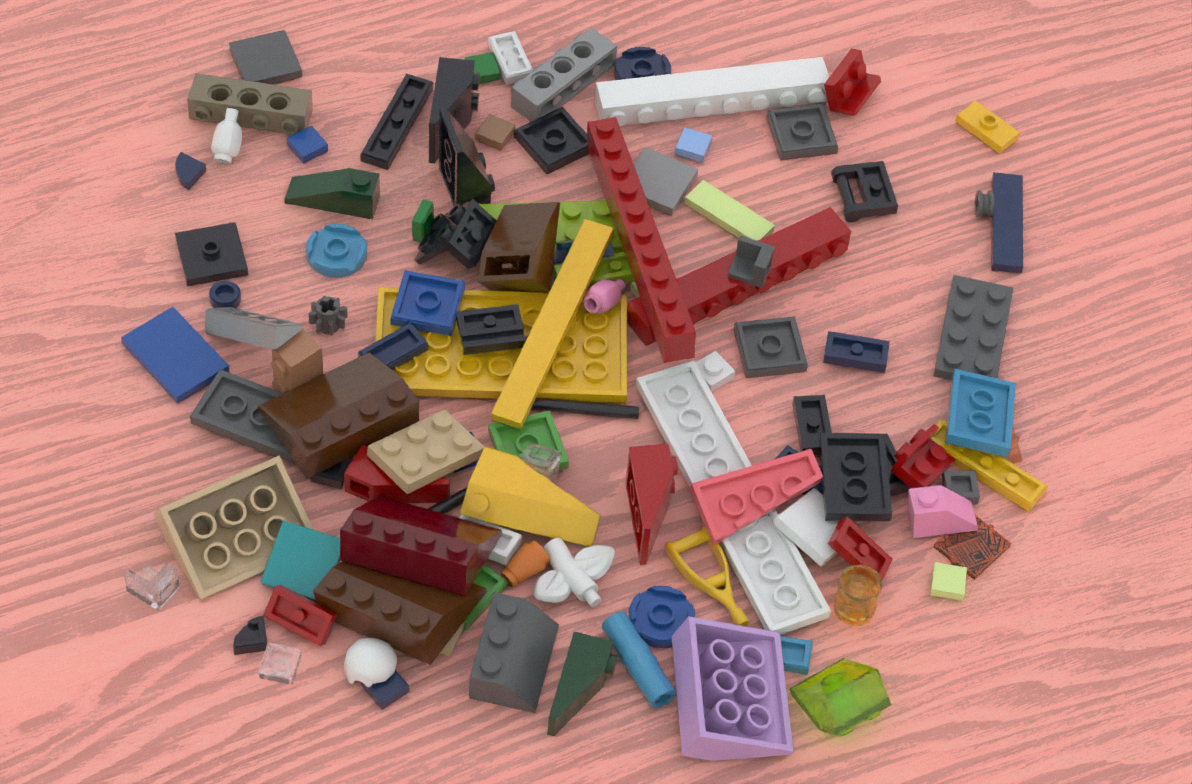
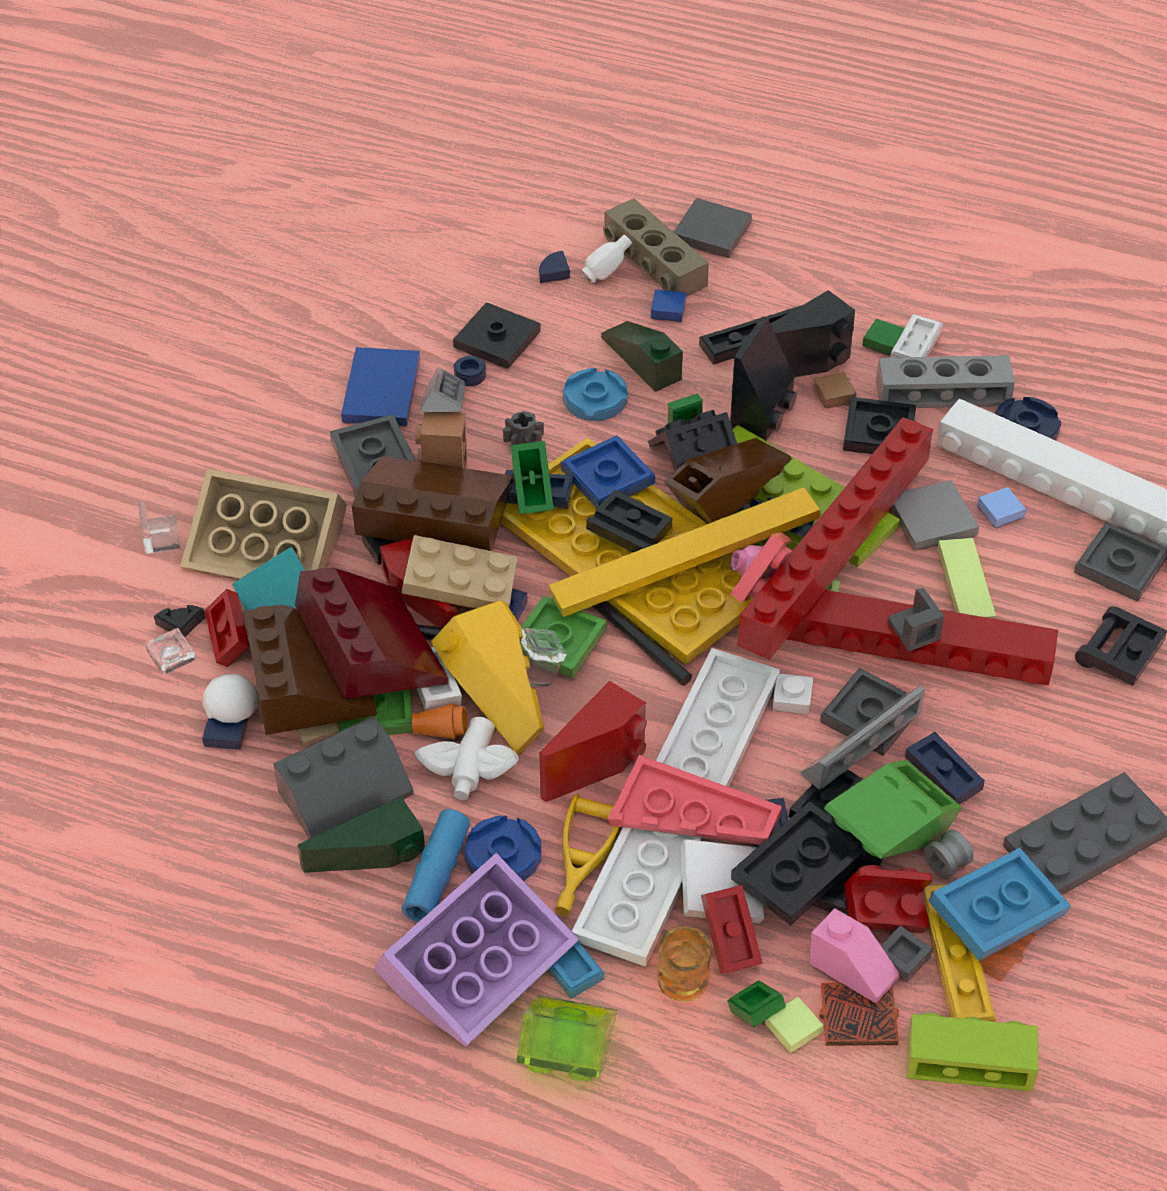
camera: 50 degrees right, 5 degrees down
(398, 345) = (531, 477): none -> green slope
(631, 295) = (769, 558): none -> coral plate
(796, 366) = (864, 739): none -> light grey slope
(873, 399) = (894, 810): none -> bright green slope
(917, 586) = (756, 1003): none -> green tile
(918, 404) = (948, 853): none -> light grey wheel
(1059, 515) = (972, 1052): none -> lime brick

